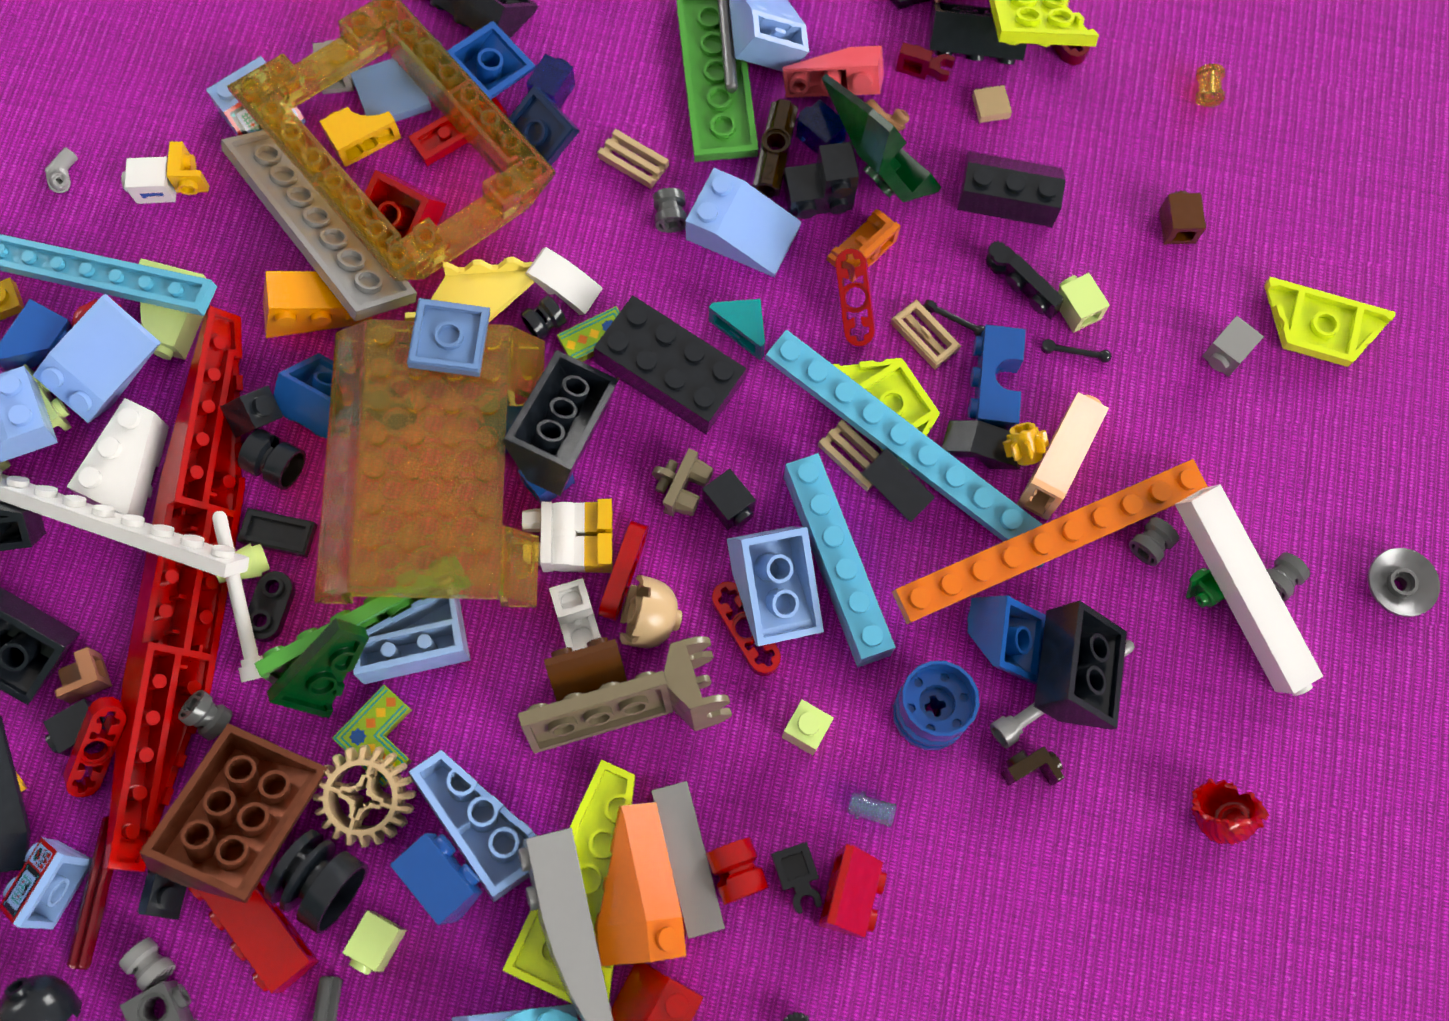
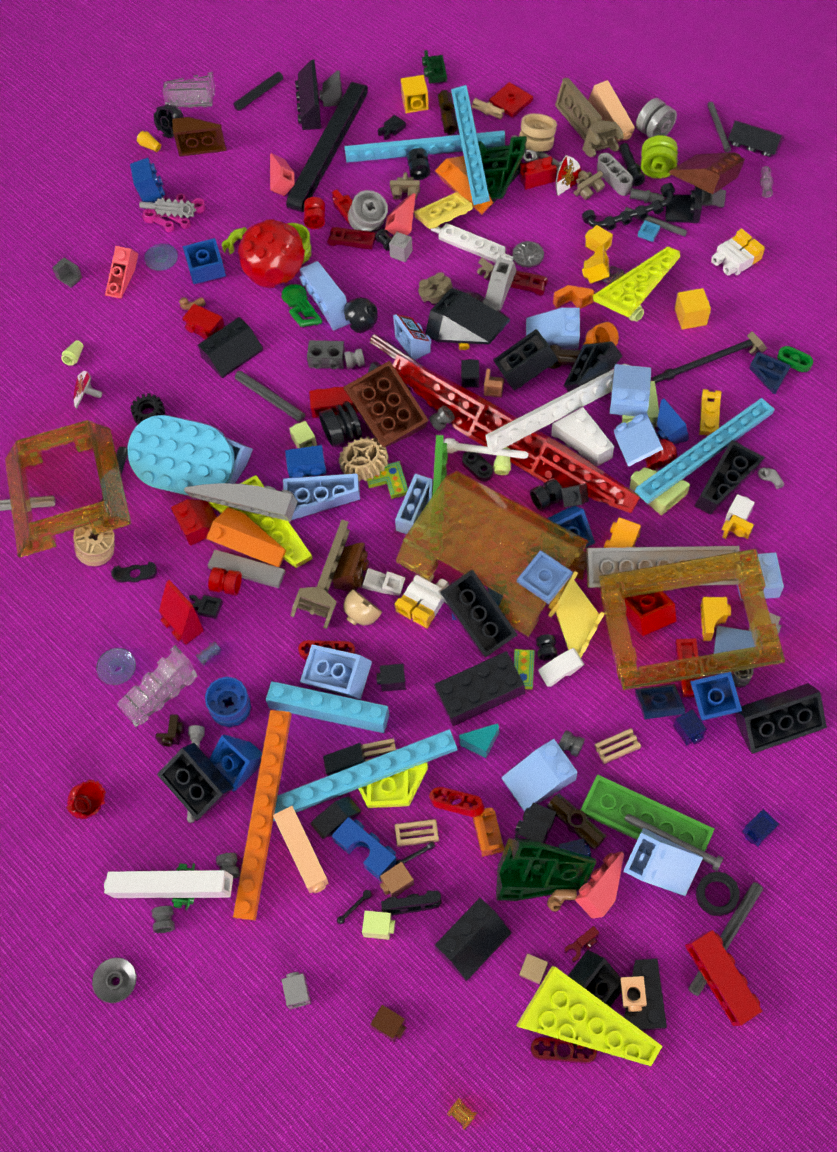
camera: 130 degrees right, 10 degrees down
(89, 732) = (455, 373): red beam -> none
(97, 219) = (730, 473): none -> black wedge
(277, 532) = (512, 483): black tile -> none
(320, 670) = (424, 459): dark green wing -> none
(623, 570) = (391, 612): red beam -> none
(677, 497) = (418, 669): dark tan hips -> none
(807, 727) = (261, 645): yellowish green brick -> none
(987, 840) = (158, 687): none -> clear wedge
(1010, 310) = (396, 880): none -> medium nougat brick
(1015, 938) = (110, 661): none -> clear light blue dish
(1026, 443) = (316, 825): yellow gear -> none
(1323, 322) = (272, 1059): neon yellow wing -> none

